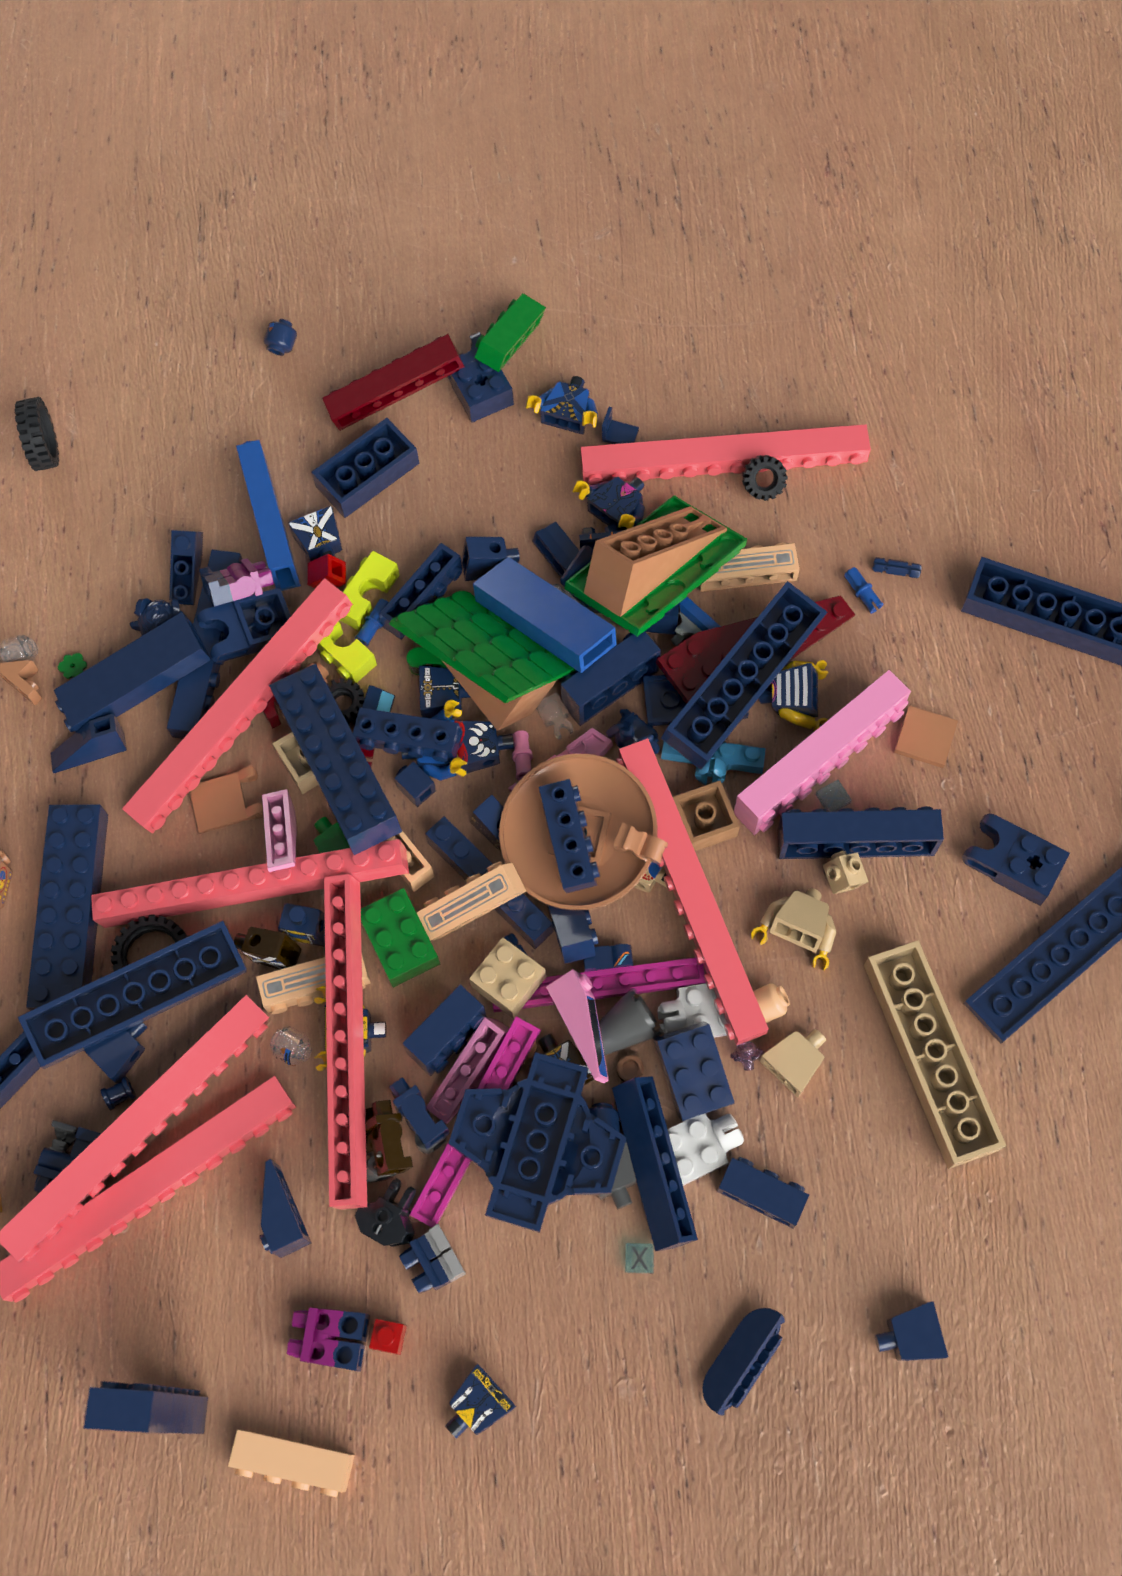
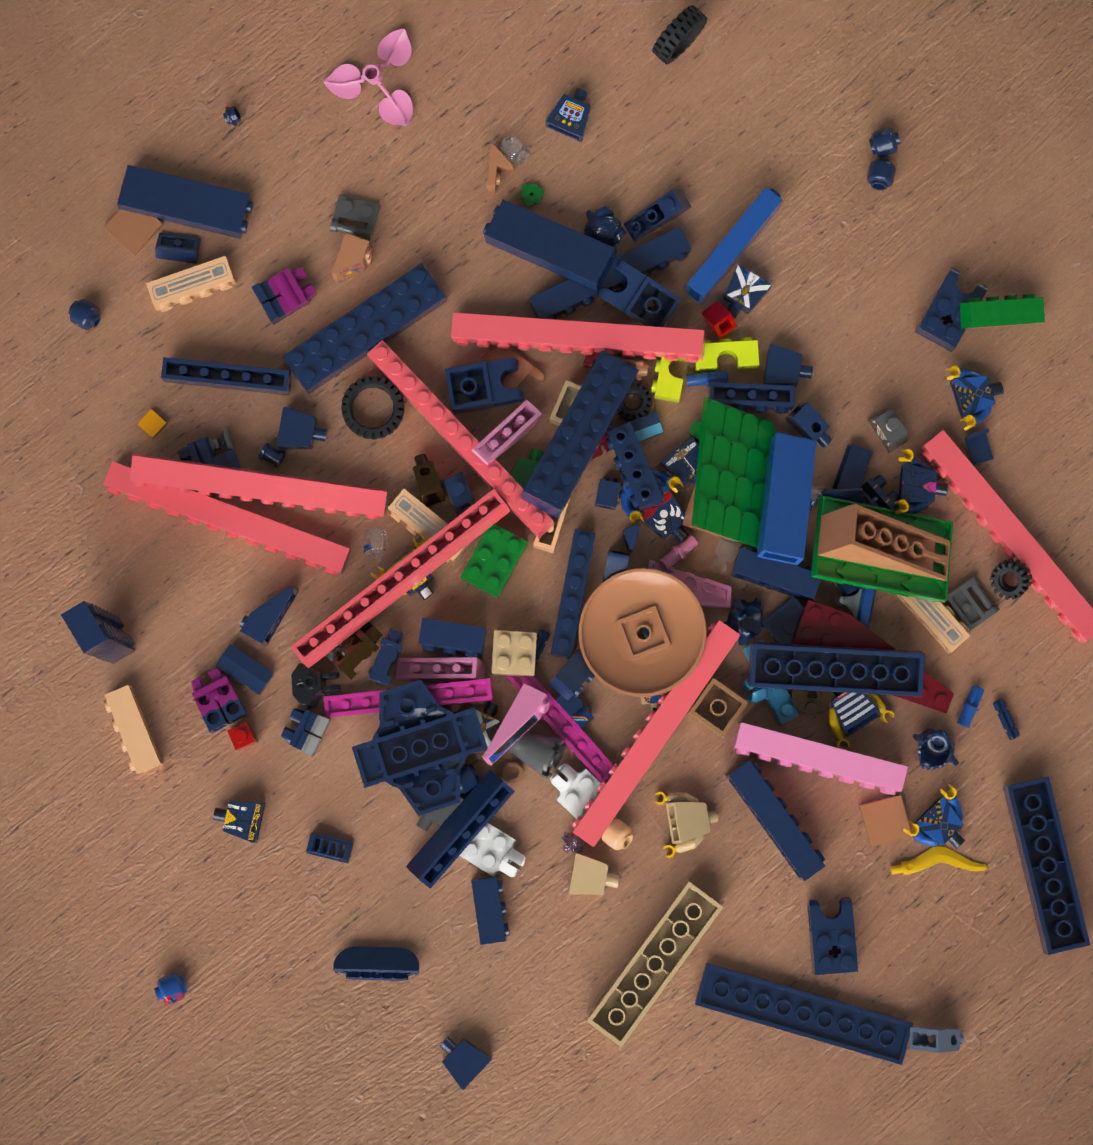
camera: 50 degrees right, 15 degrees up
(30, 582) = (570, 115): none -> dark blue torso
(91, 742) = (483, 252): dark blue slope -> none
(132, 995) = (335, 422): dark blue brick -> none
(216, 823) = (487, 383): none -> dark blue brick
(236, 581) = (662, 267): magenta hips -> none
(306, 357) = (881, 174): none -> dark blue head
(318, 1282) = (245, 669): none -> dark blue piece
(365, 467) = (820, 286): dark blue brick -> none
(393, 382) = (901, 256): dark red brick -> none
(414, 545) = (784, 367): none -> dark blue torso
(470, 901) = (548, 594): light nougat brick -> none
(474, 787) = (630, 536): none -> dark blue slope
(545, 492) = (889, 429): none -> dark grey torso
(560, 1341) = (312, 841): none -> dark blue slope
(568, 835) = (631, 629): dark blue brick -> none
(639, 1258) = (395, 858): clear light blue tile -> none
(640, 843) = (657, 682): nougat leg -> none
(693, 1070) = (535, 815): dark blue brick -> none
(762, 729) = (811, 705): none -> dark brown plate
(763, 533) = (966, 607): none -> dark grey plate
(833, 796) = (795, 785): clear light blue tile -> none
(845, 872) = (742, 827): tan brick -> none
(885, 642) = (935, 749): none -> dark blue hair
(960, 684) = (939, 822): none -> torso
(991, 714) = (934, 856): none -> yellow piece

